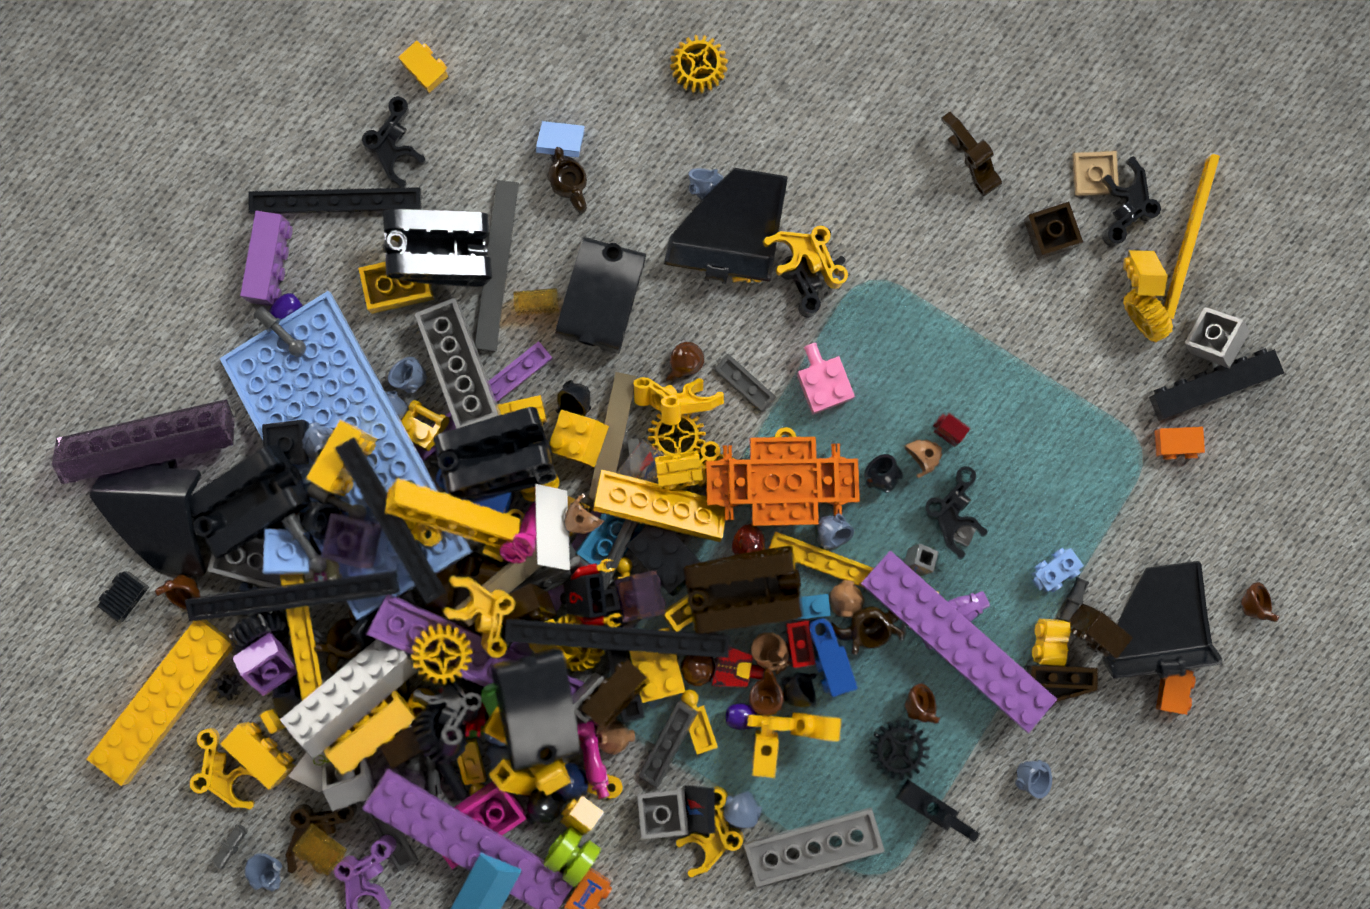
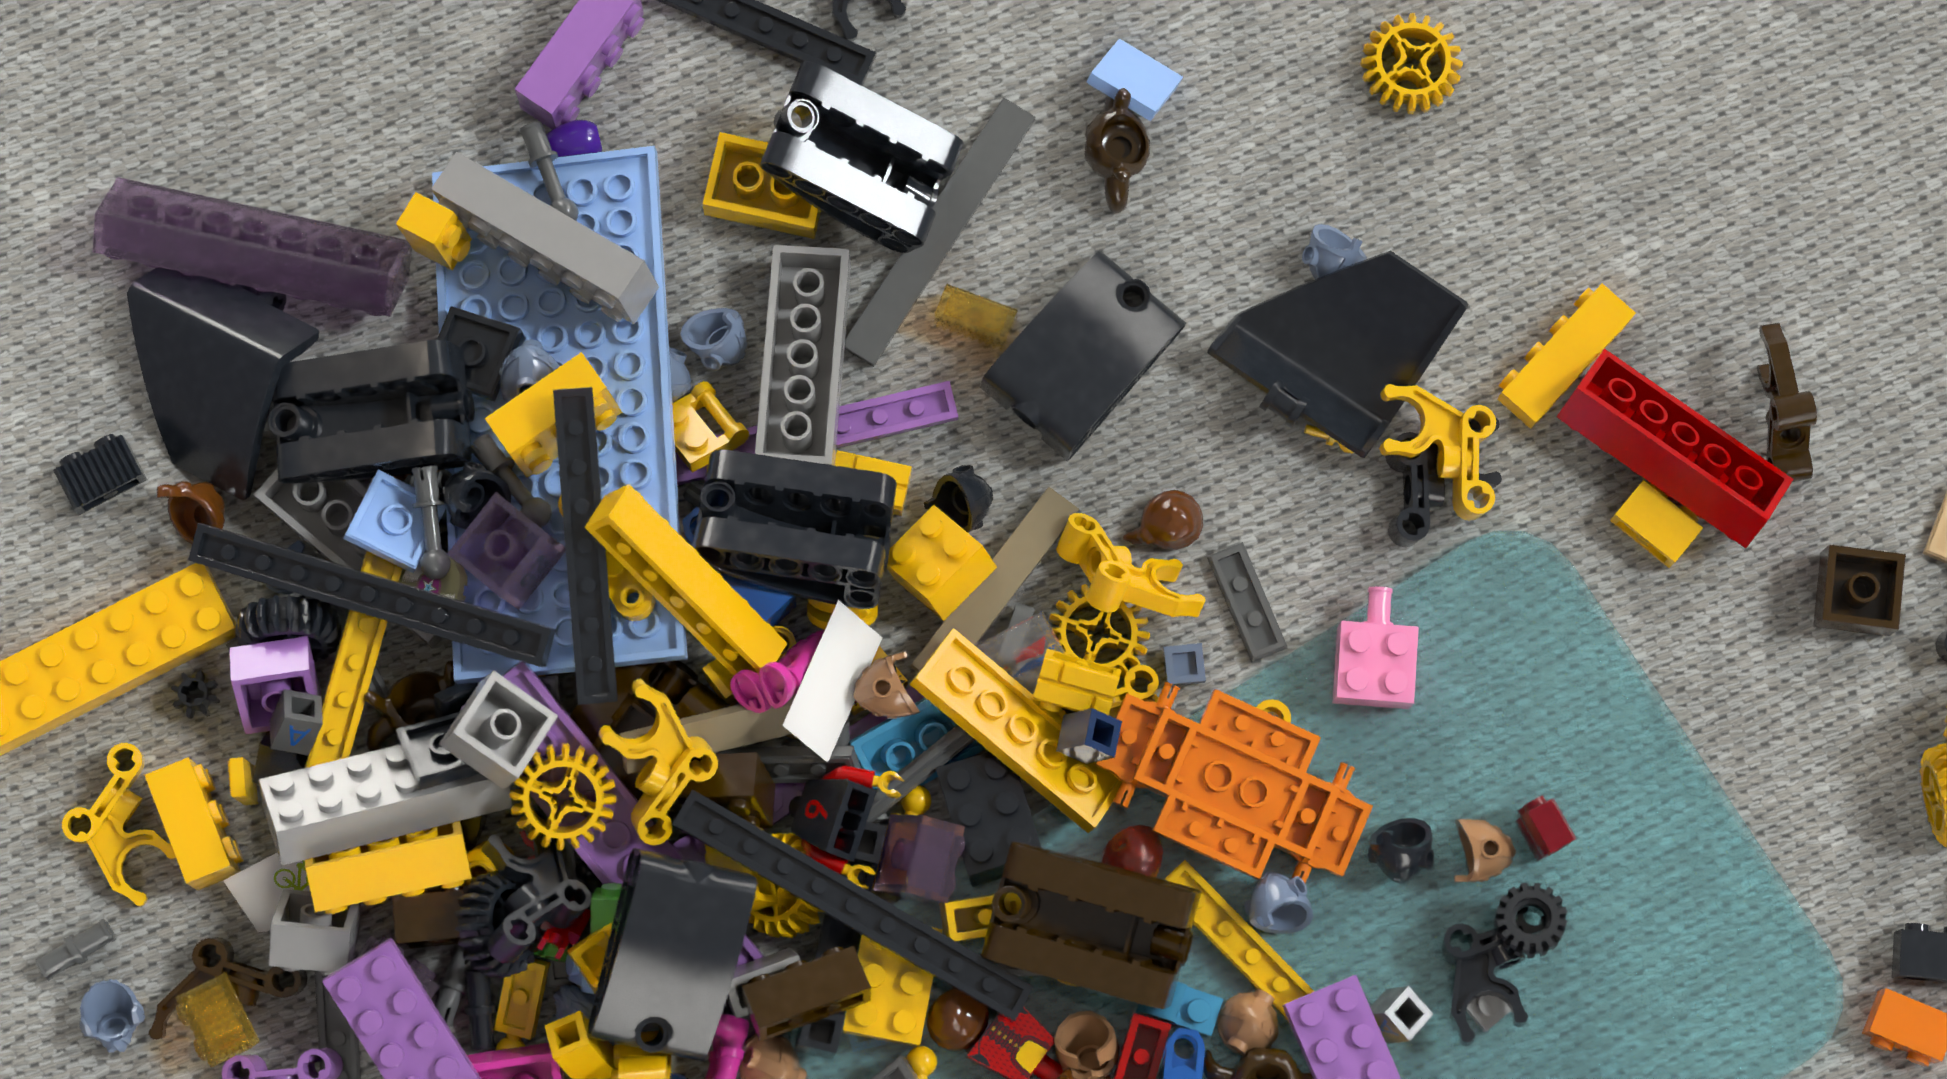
camera: 20 degrees right, 5 degrees down
(234, 390) = (434, 231): none -> yellow brick
(285, 679) = (296, 722): none -> dark grey brick
(293, 367) = (546, 239): none -> light grey brick
(368, 659) = (427, 759): none -> black tile
(391, 637) = (498, 730): none -> light grey brick
(697, 492) = (1089, 736): none -> dark blue brick
(727, 430) = (1184, 664): none -> sand blue plate
(848, 179) = (1566, 355): none -> yellow brick
(926, 201) = (1675, 448): none -> red brick
(934, 244) = (1657, 523): none -> yellow brick
(966, 467) = (1535, 897): none -> black tyre

